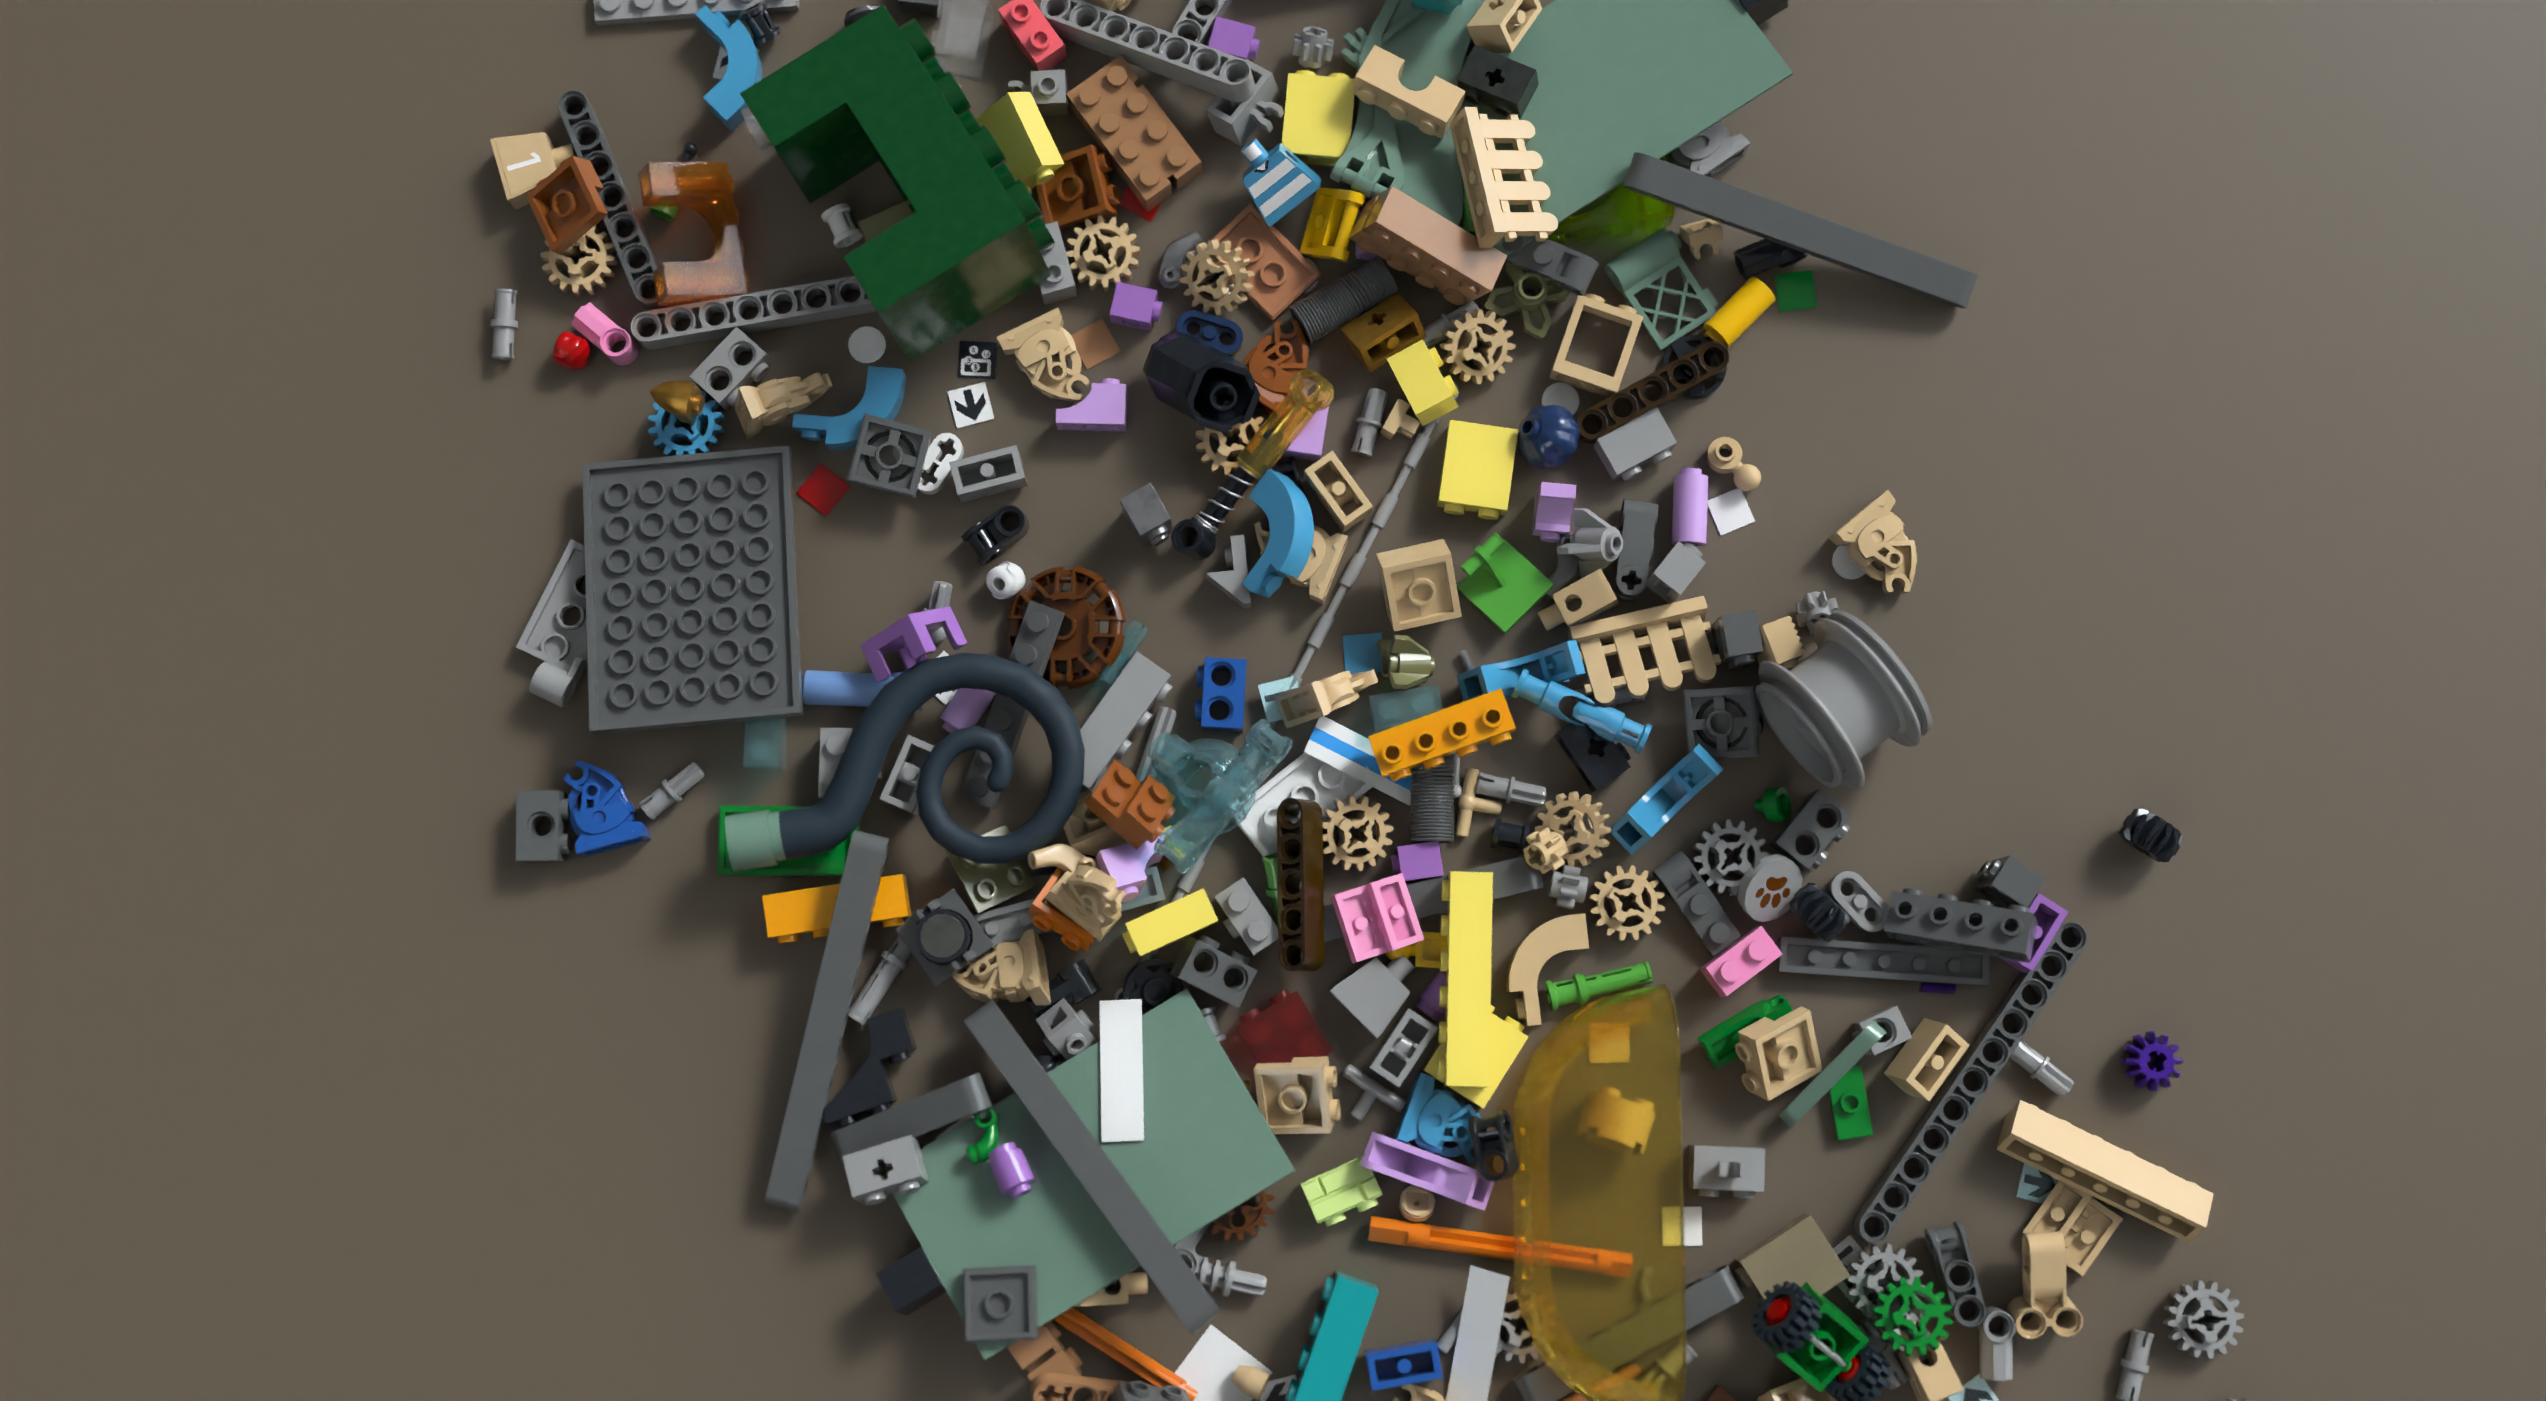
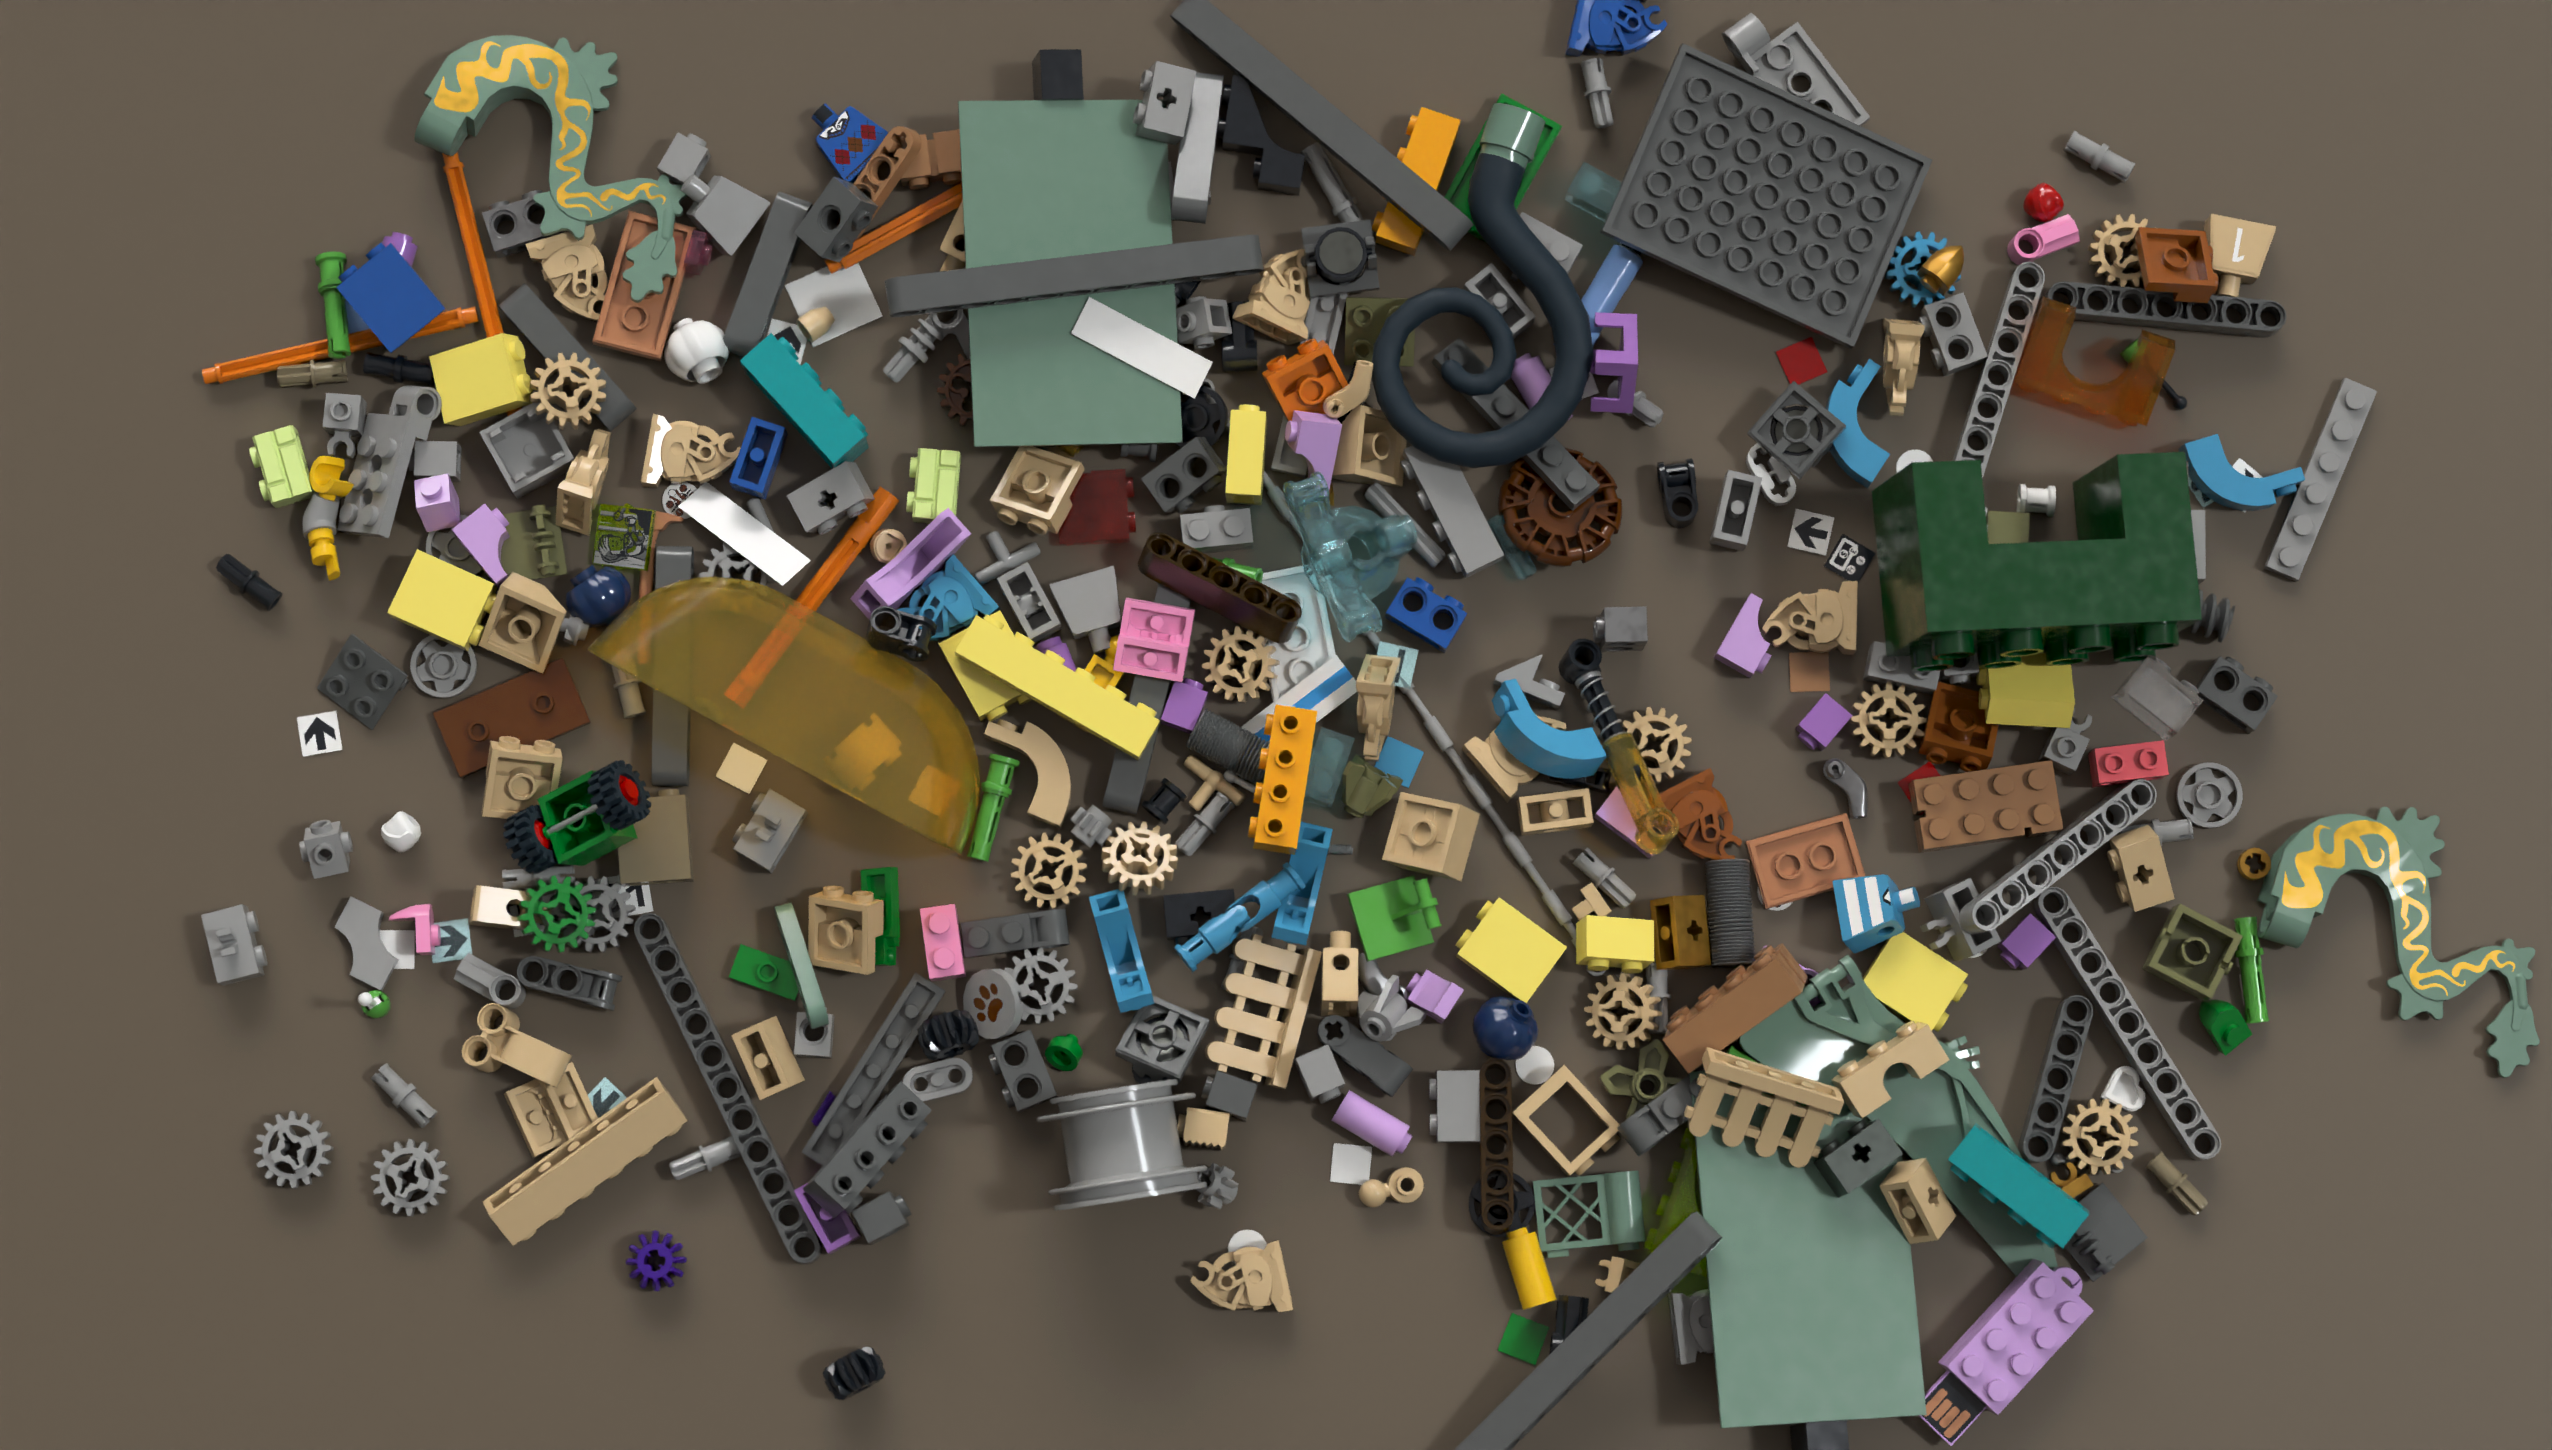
camera: 115 degrees right, 0 degrees up
(760, 23) = (2265, 522): black bush -> none
(989, 1141) = (1138, 197): green arm -> none
(1000, 1303) = (998, 138): dark grey tile -> none
(1005, 580) = (1631, 477): white piece -> none
(1011, 1170) = (1106, 206): medium lavender brick -> none
(1088, 899) = (1303, 390): tan piece -> none
(1131, 806) = (1368, 474): dark orange plate -> none
(1201, 381) = (1718, 739): black brick -> none
(1206, 265) = (1827, 813): tan gear -> none
(1212, 329) = (1763, 778): dark blue plate -> none
(1312, 47) = (1983, 1013): light grey gear -> none
(1324, 221) = (1805, 938): yellow plate -> none
(1418, 1291) = (812, 499): none -> light grey brick
(1545, 850) = (1133, 818): tan gear -> none

